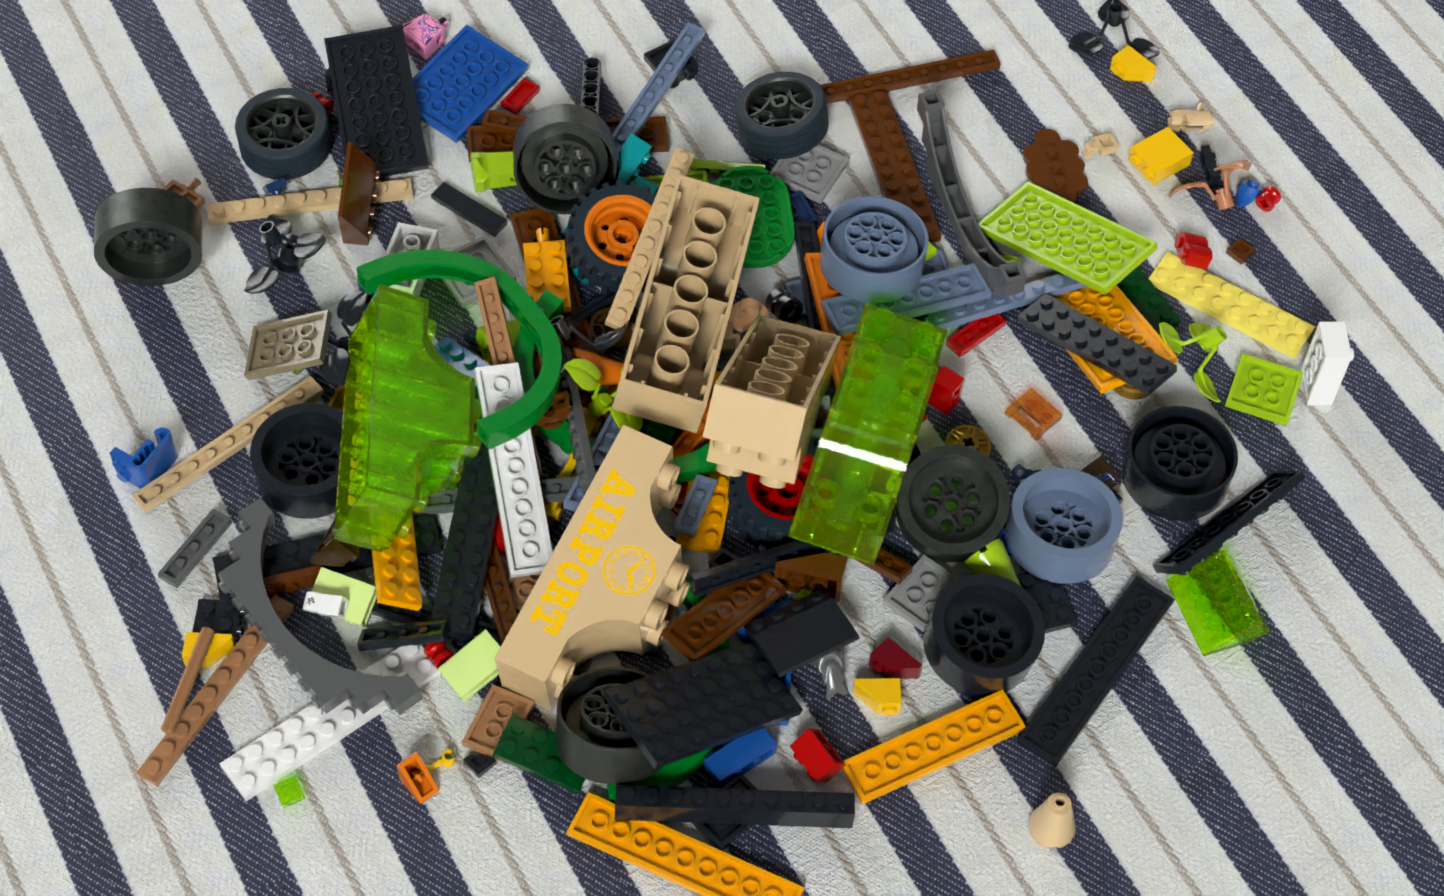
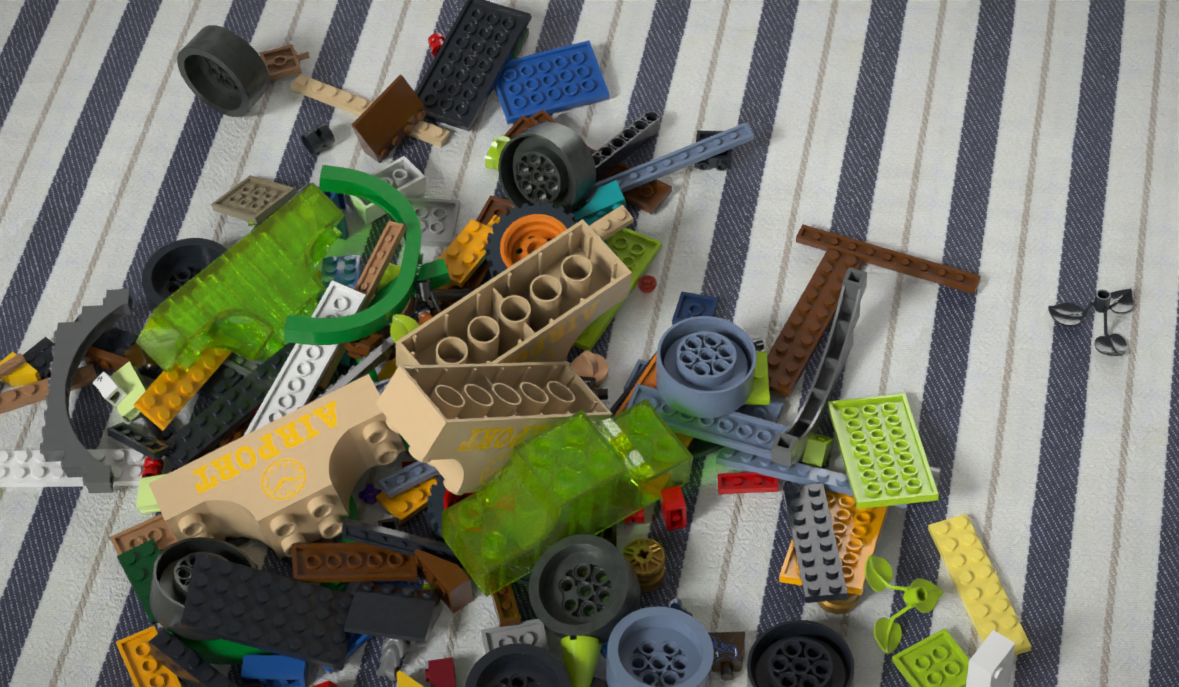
camera: 45 degrees right, 5 degrees down
(147, 462) = (95, 226): blue piece -> none
(194, 548) = (72, 302): dark grey plate -> none
(221, 447) = (143, 245): tan plate -> none
(271, 234) = (308, 117): black plant -> none
(275, 187) = (353, 86): dark blue plate -> none
(283, 133) = (389, 47): wheel -> none
(417, 778) = (60, 541): orange slope -> none
(425, 34) = (558, 32): bright pink torso -> none
(443, 761) = (93, 539): yellow hand -> none
(469, 209) = (469, 176): black tile -> none
(479, 764) = (109, 561): black tile -> none
(520, 96) = (584, 115): red tile -> none
(716, 166) = (685, 251): lime plate -> none
(773, 223) = (660, 295): green plate -> none
(781, 115) = (752, 232): wheel -> none
(784, 305) = (617, 374): black wheel -> none
(811, 172) = (742, 286): light grey plate -> none
(1038, 410) = (737, 570): clear orange plate -> none
(1055, 165) = (941, 396): reddish brown plate -> none
(1103, 144) = (997, 400): tan plate -> none
(1132, 66) = (1085, 351): yellow slope -> none
(1148, 300) = (906, 538): dark green plate -> none
(1160, 156) = (1035, 436): yellow brick -> none
(1191, 119) = (1092, 422): tan piece -> none
(1193, 250) = (983, 523): red brick -> none
(1208, 163) = (1068, 473): black plate -> none
(1223, 196) = (1056, 497): nougat plant -> none
(1240, 251) = (1031, 550): reddish brown tile -> none
(1248, 191) = (1086, 506): blue plate -> none
(1268, 198) = (1095, 522): red wheel -> none

